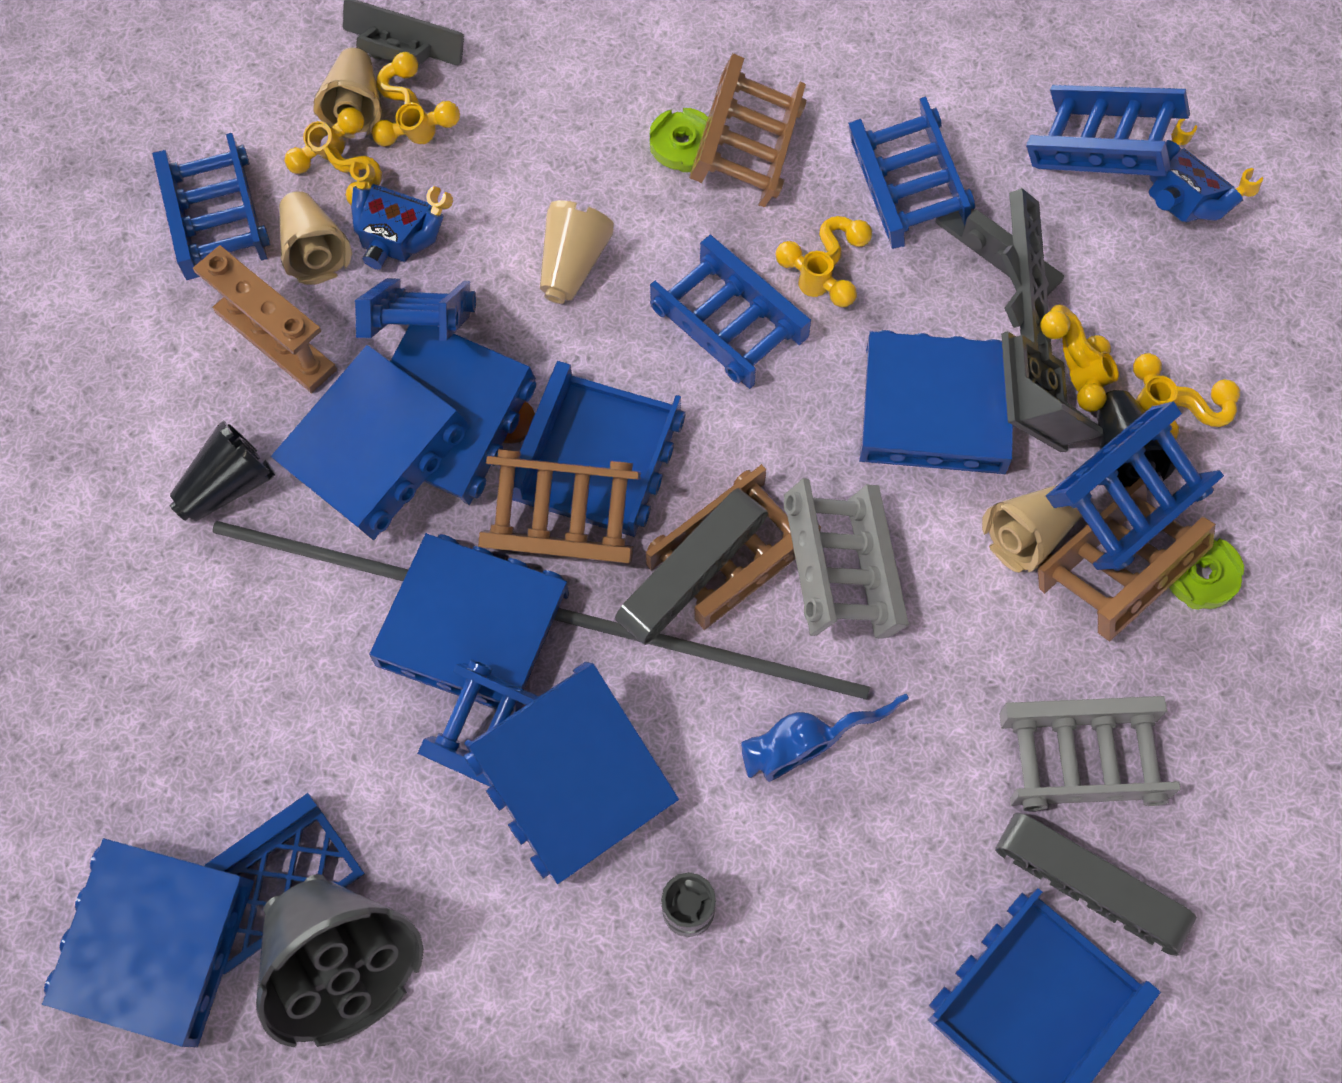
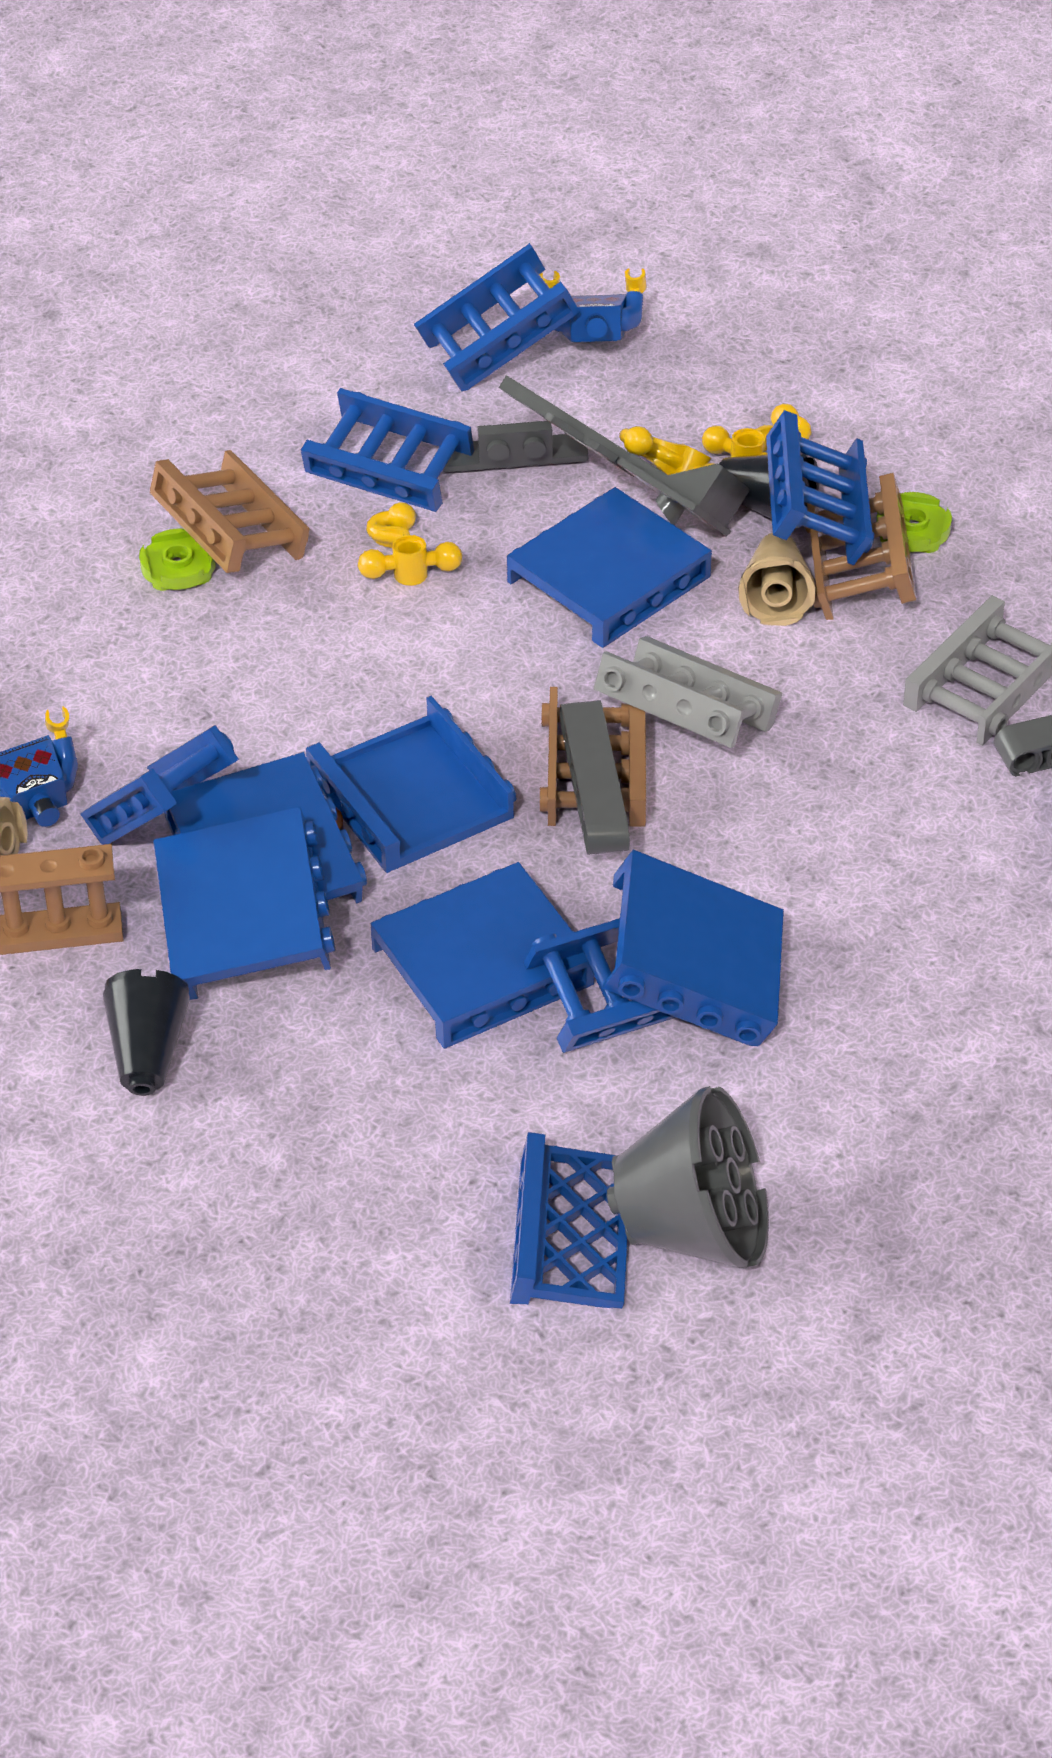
camera: 50 degrees left, 20 degrees down
(148, 943) = (545, 1319): blue panel -> none
(562, 615) = (551, 892): dark grey axle -> none
(571, 248) = (202, 677): tan cone -> none
(575, 541) = (452, 864): medium nougat fence -> none
(688, 904) = (875, 960): dark grey wheel -> none
(738, 281) = (375, 604): blue fence -> none
(801, 738) = (804, 820): blue animal -> none

